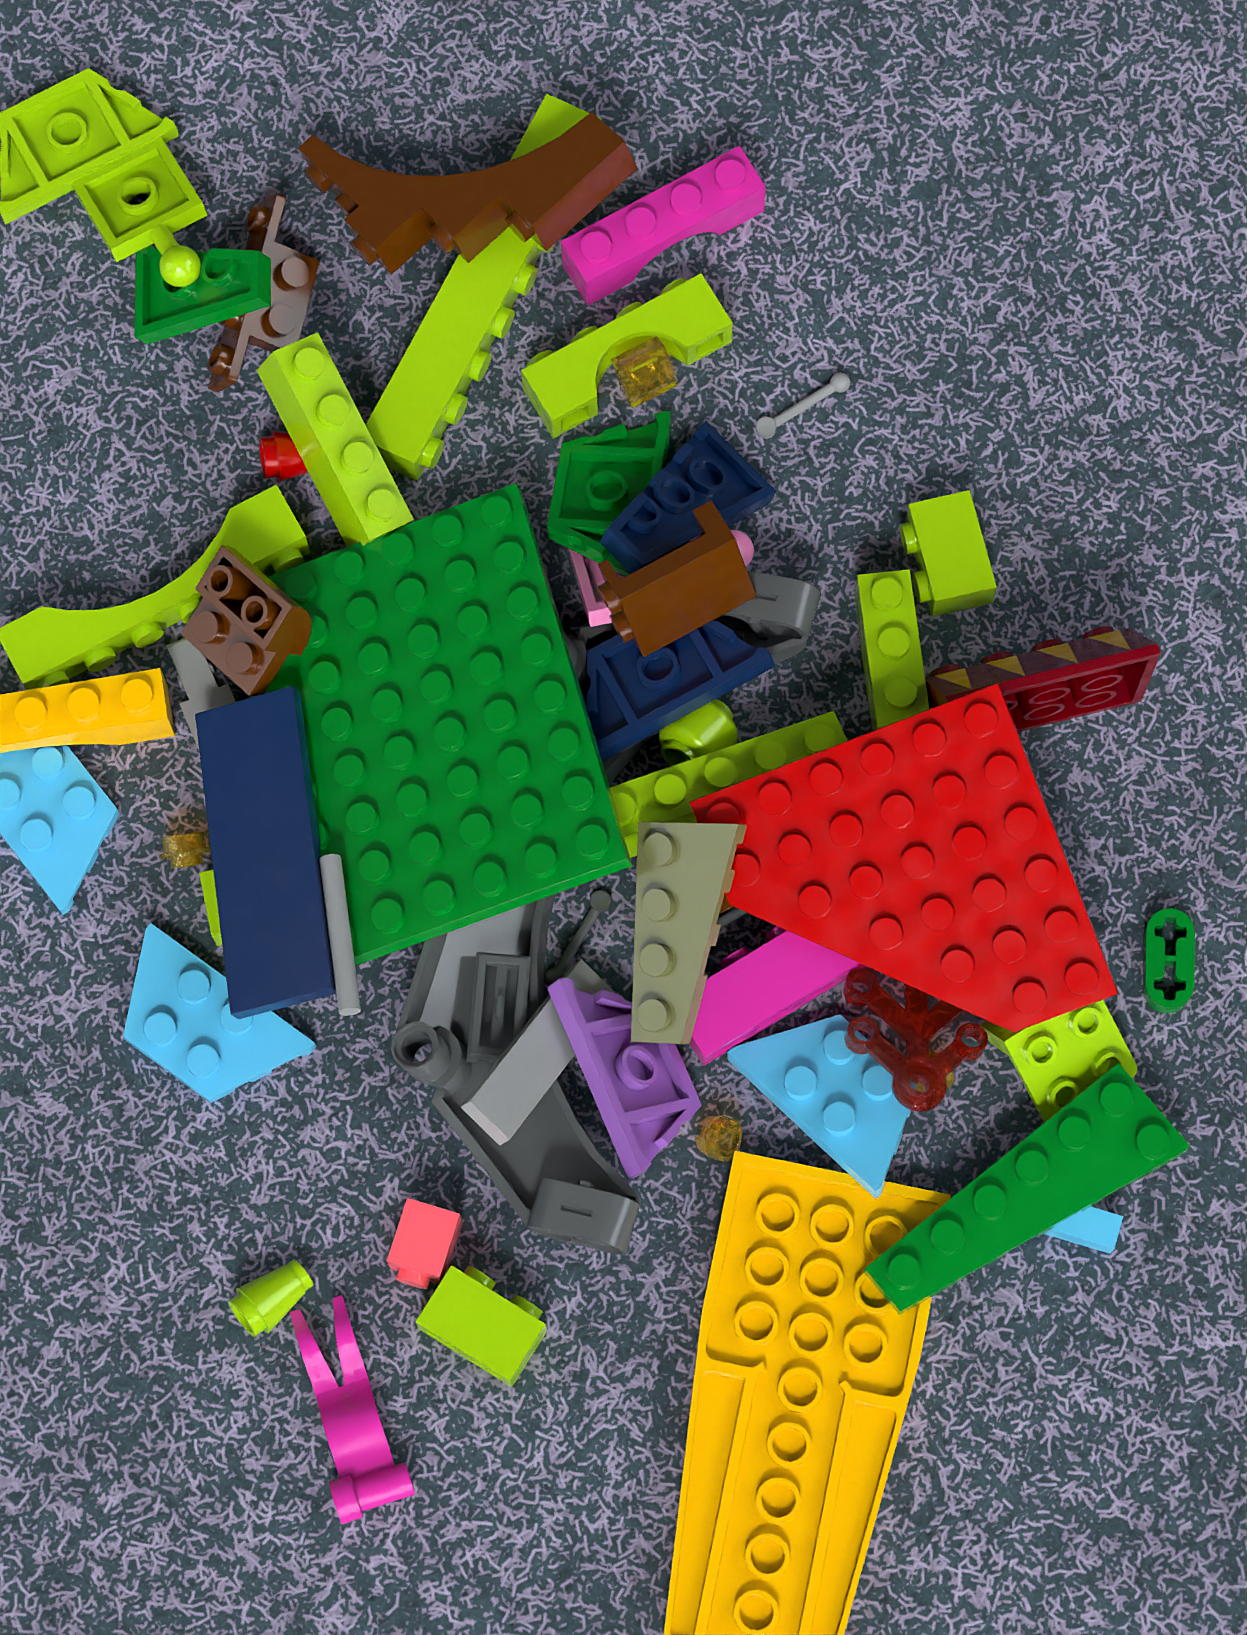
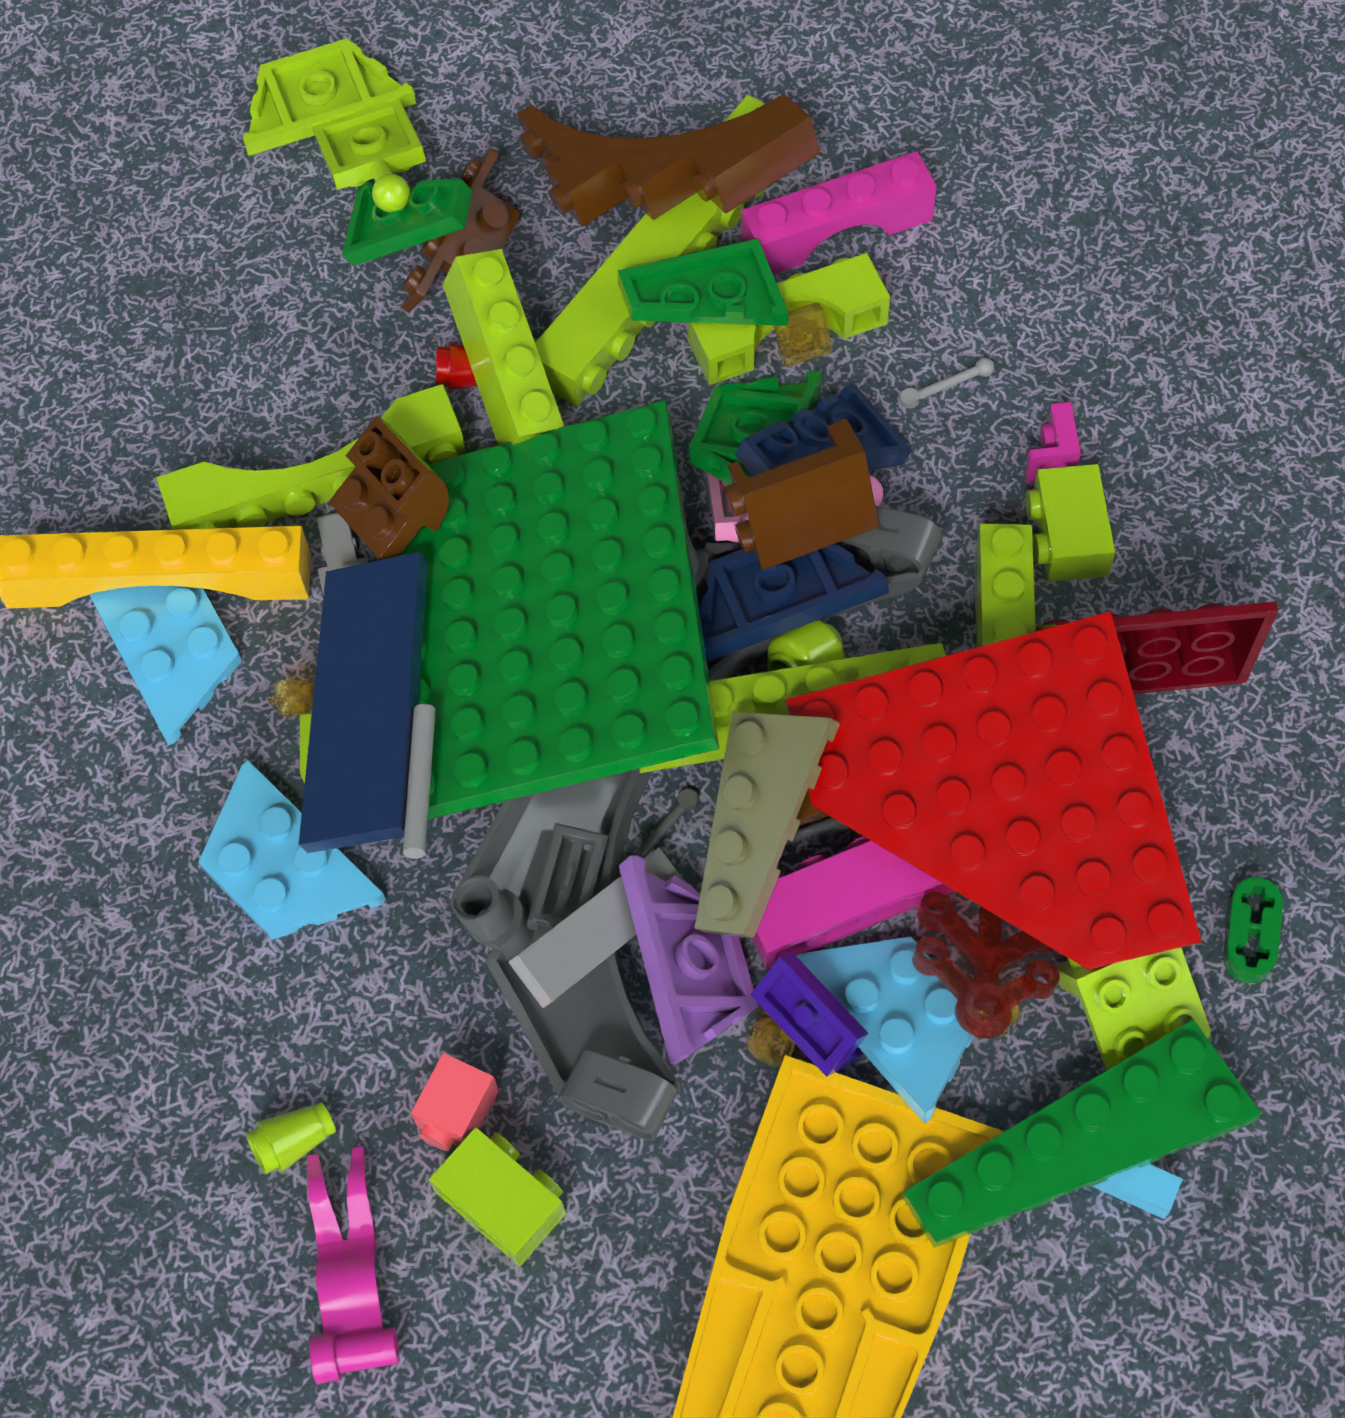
camera: 10 degrees right, 10 degrees down
(539, 340) = (706, 287): none -> green wing
(753, 1110) = (810, 1015): none -> dark purple panel
(924, 460) = (1058, 442): none -> dark pink bracket

